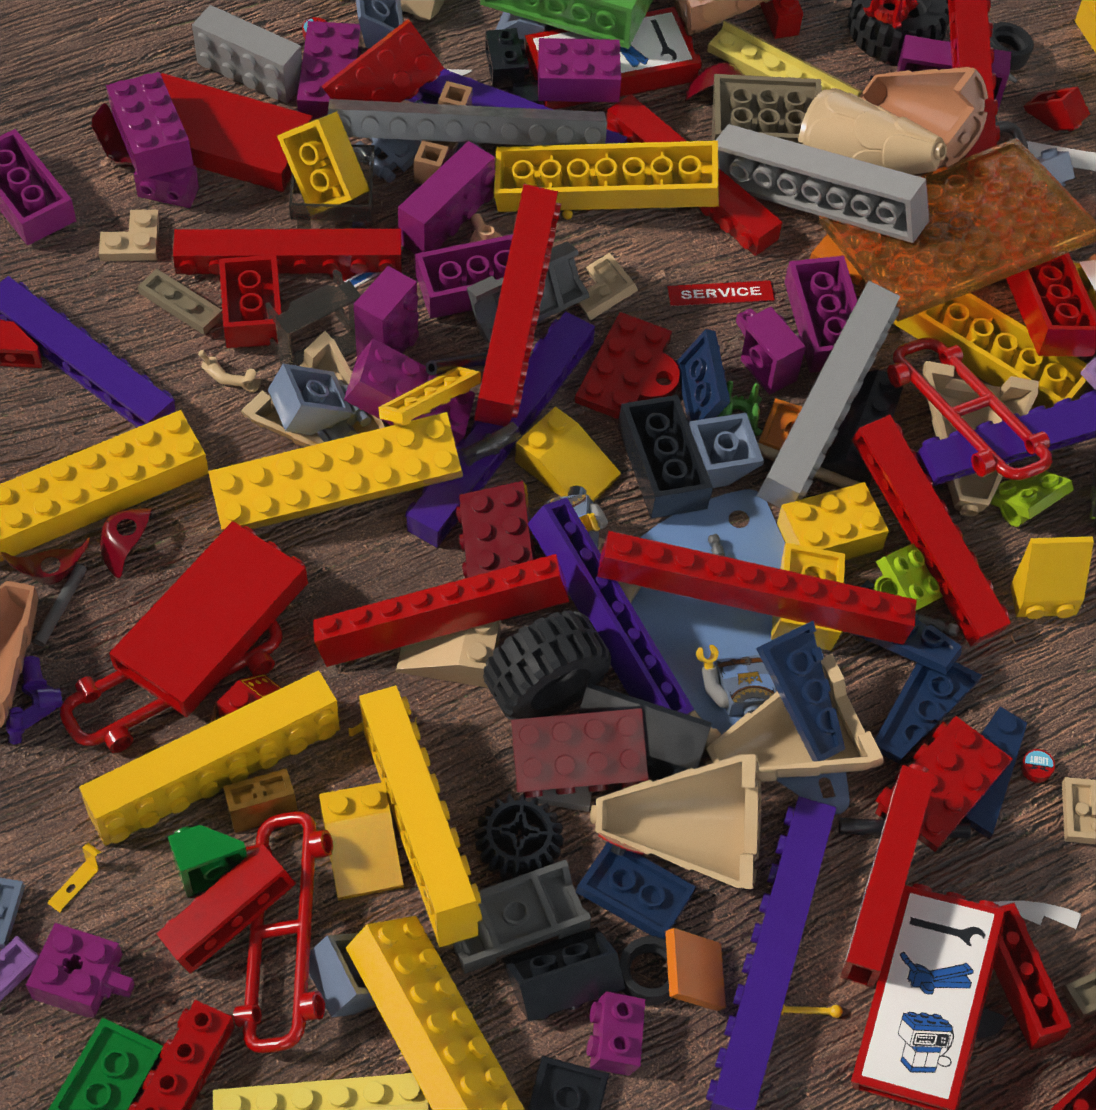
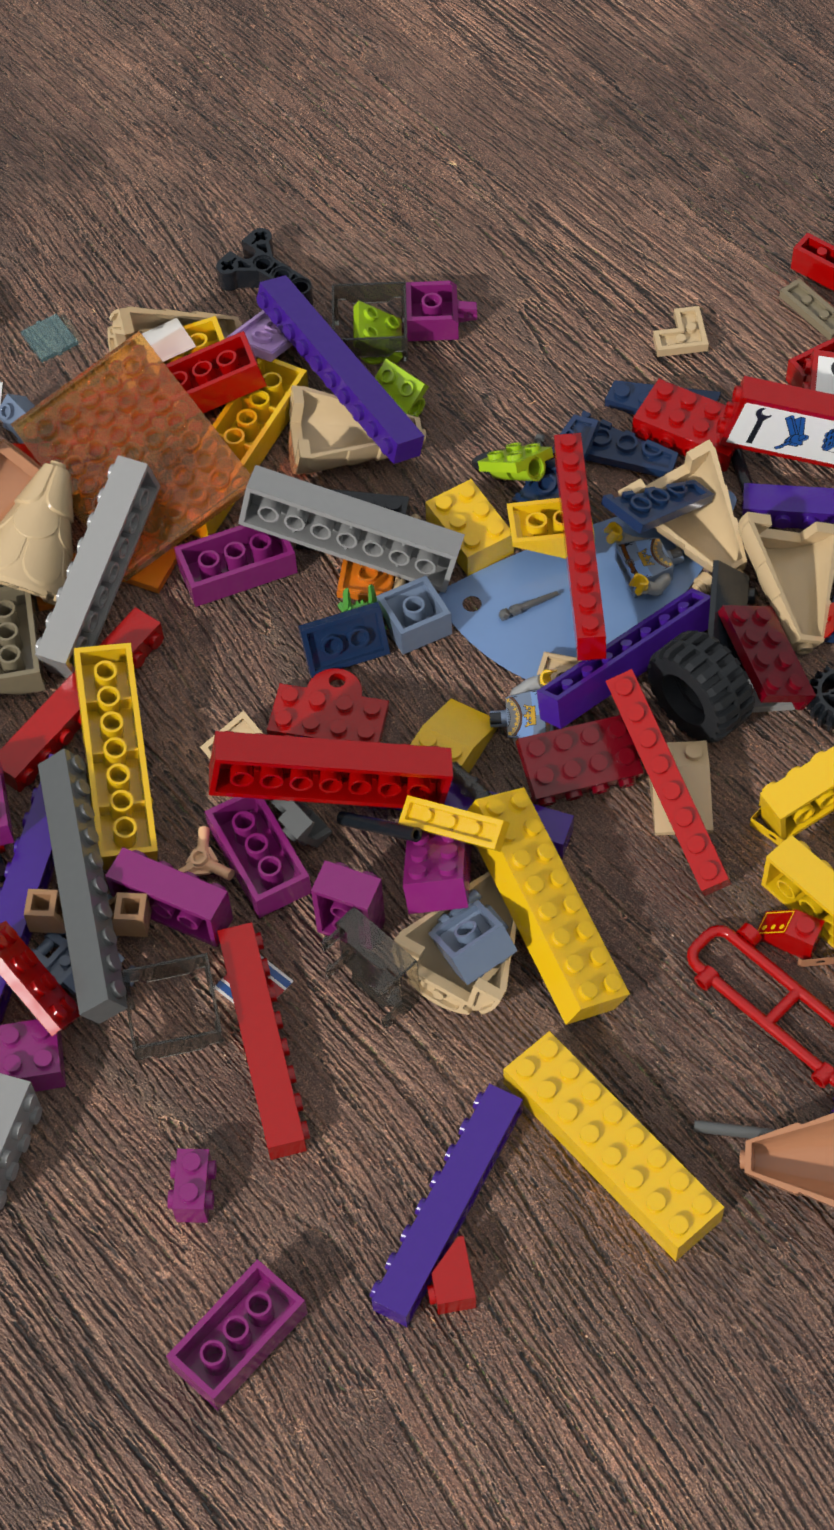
camera: 95 degrees left, 0 degrees up
(32, 564) = (693, 1133): dark red piece -> none
(109, 136) = (154, 1254): dark red piece -> none
(116, 546) = (663, 1103): dark red piece -> none
(135, 245) = (273, 1196): tan plate -> none
(149, 125) = (142, 1199): magenta brick -> none
(180, 301) = (350, 1127): dark tan plate -> none
(209, 618) = (726, 977): red brick -> none
(215, 370) = (424, 1074): tan piece -> none
(234, 132) = (106, 1154): red brick -> none
(245, 290) = (341, 1049): red brick -> none
(323, 161) = (163, 1005): yellow brick -> none
(664, 456) = (432, 658): black brick -> none
(720, 293) = (217, 658): red sticker -> none
(770, 348) = (291, 594): magenta hinge -> none
(930, 528) = (459, 450): red brick -> none
(986, 459) = (413, 391): red bar -> none
(1036, 911) = (771, 366): white sticker -> none
(1037, 765) = (648, 372): tile -> none
(1052, 577) = (486, 368): yellow slope -> none

